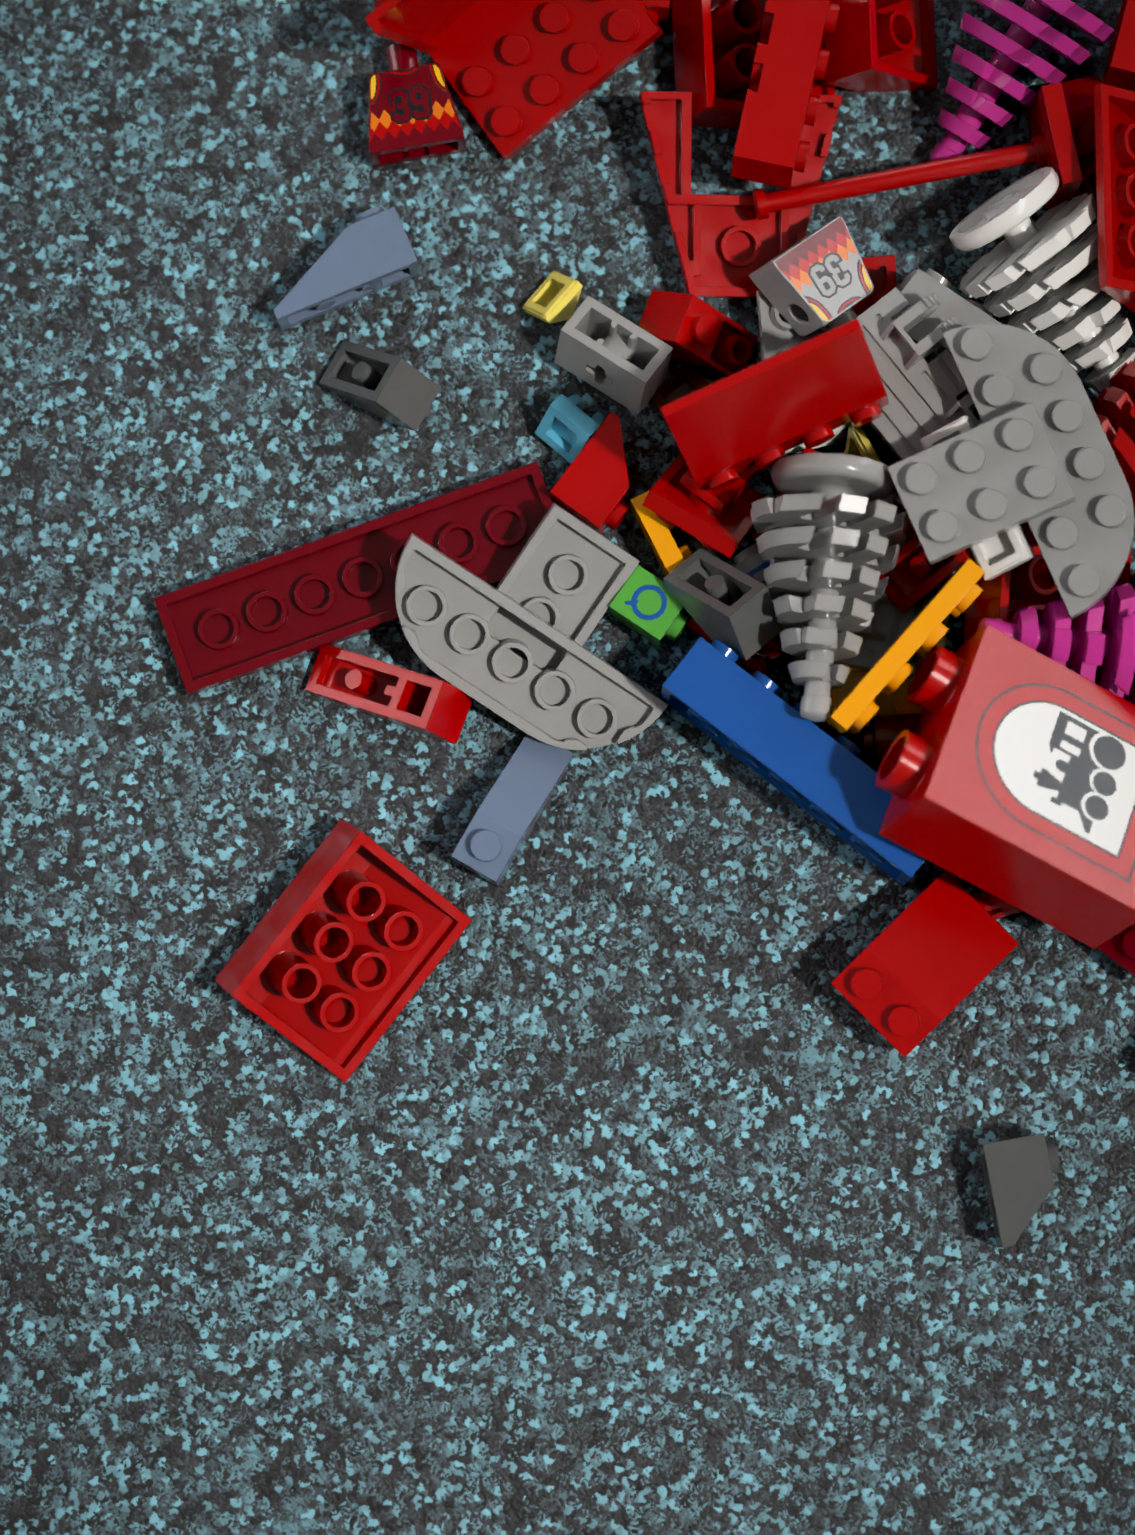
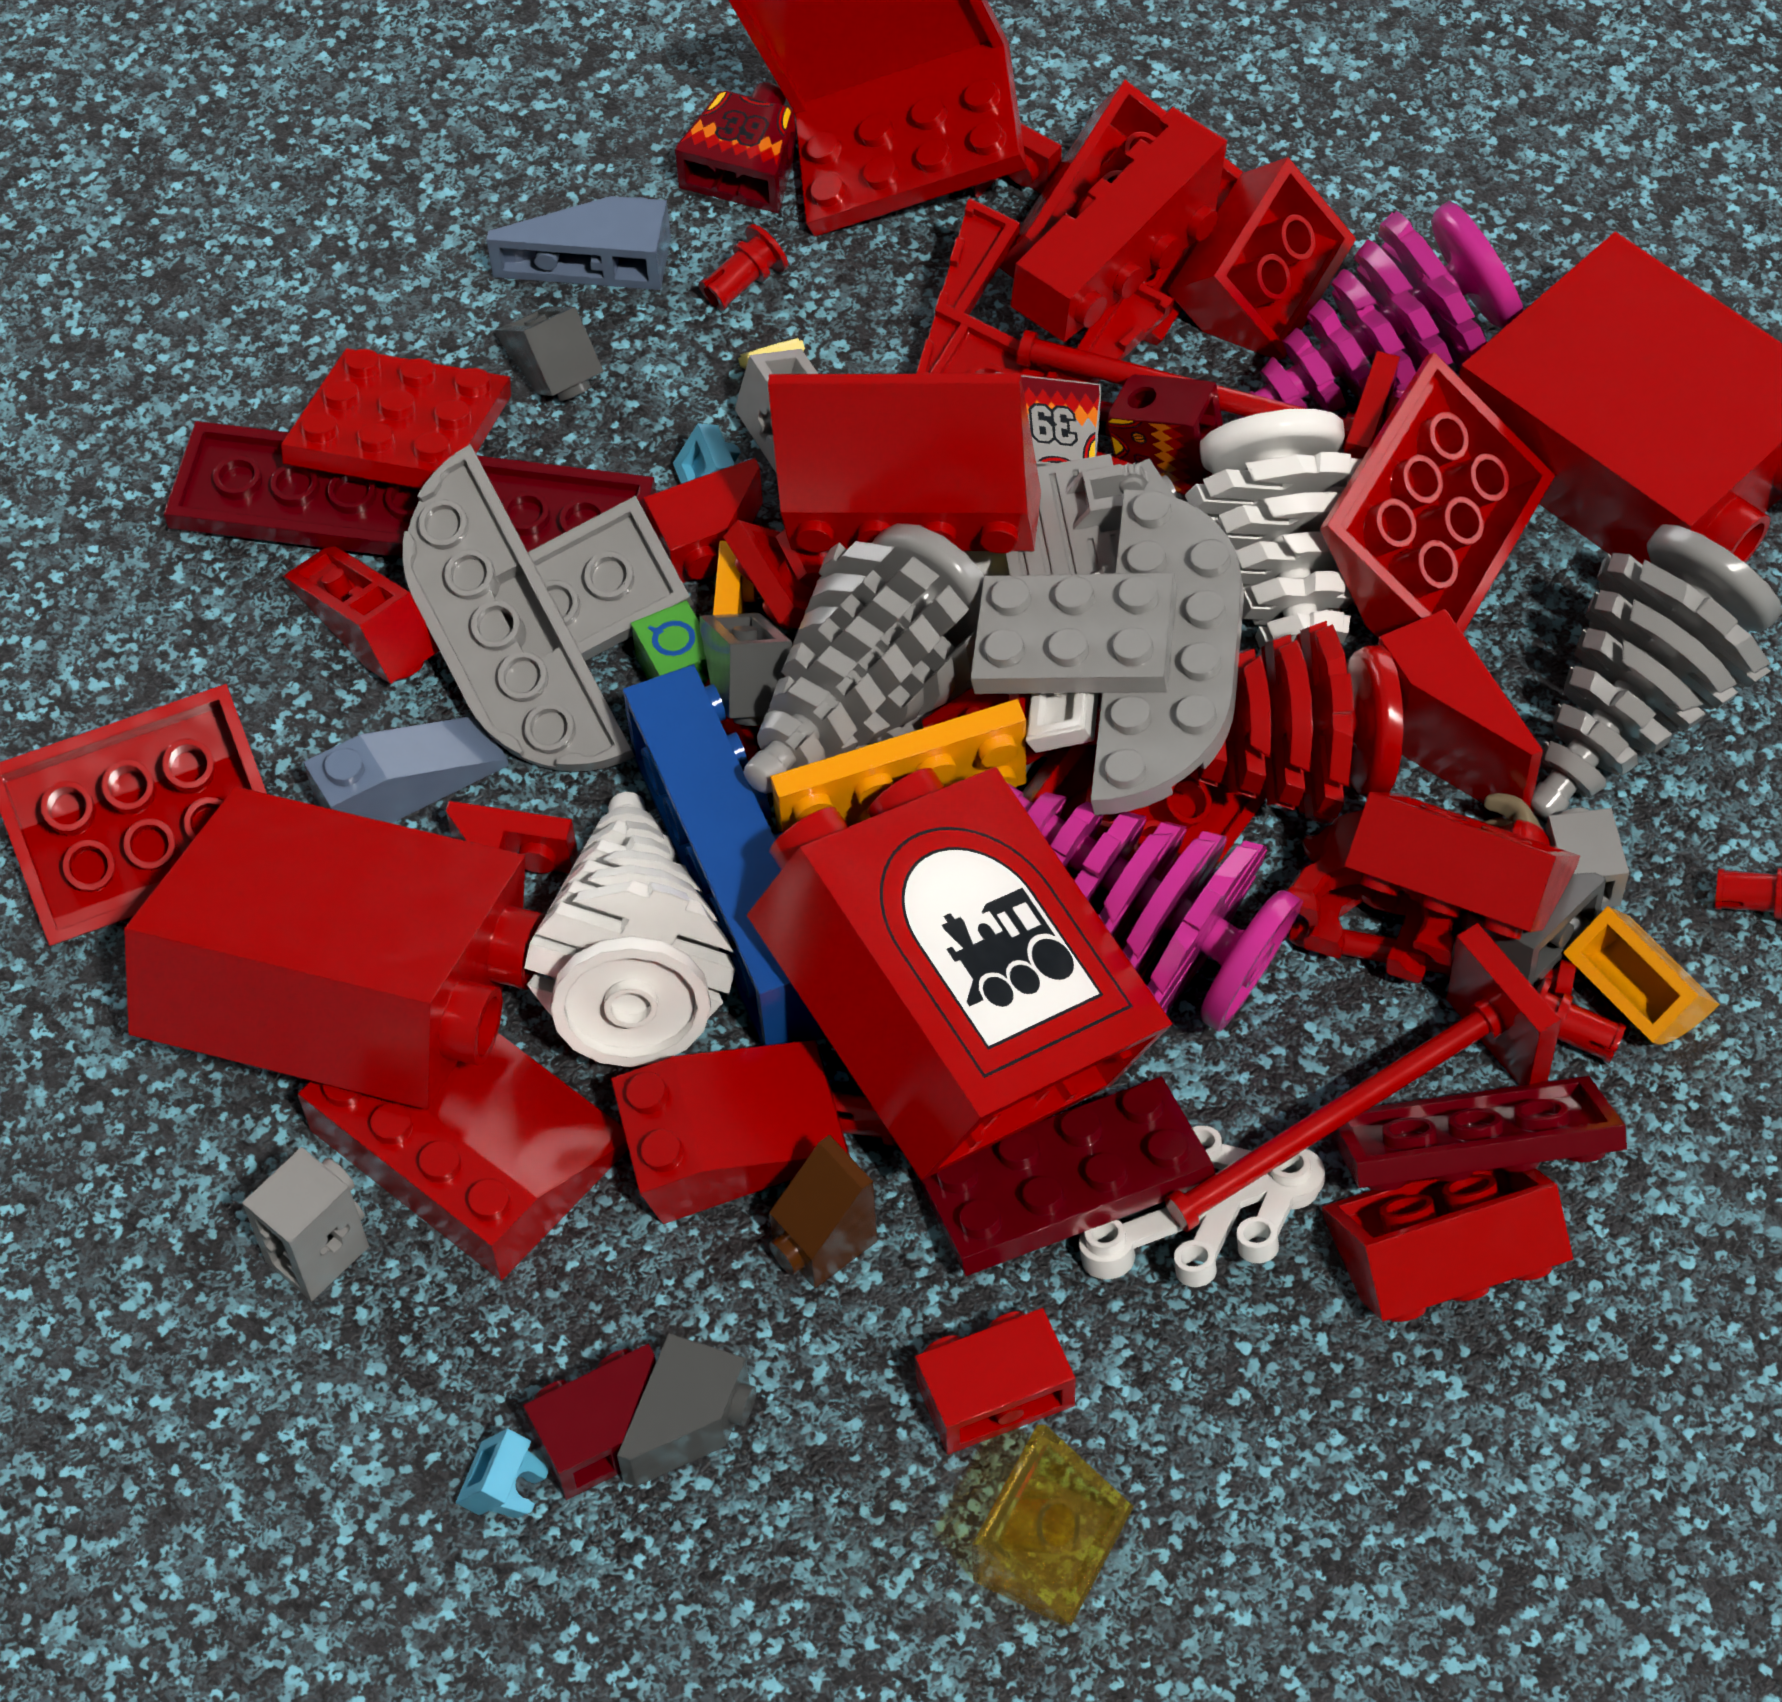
camera: 25 degrees right, 25 degrees down
(310, 516) = (394, 417): none -> red plate
(481, 227) = (747, 264): none -> red pin
(588, 997) = (330, 947): none -> red brick
(612, 831) = (543, 839): none -> red slope
(691, 1199) = (307, 1222): none -> light grey brick
(739, 1058) = (487, 1160): none -> red slope
(775, 866) = (629, 946): none -> white plant
(913, 214) = (1163, 423): none -> dark red torso
(921, 1296) = (494, 1475): none -> medium azure tile
(964, 1225) = (586, 1420): none -> dark red slope
(1030, 1001) = (824, 1215): none -> reddish brown slope

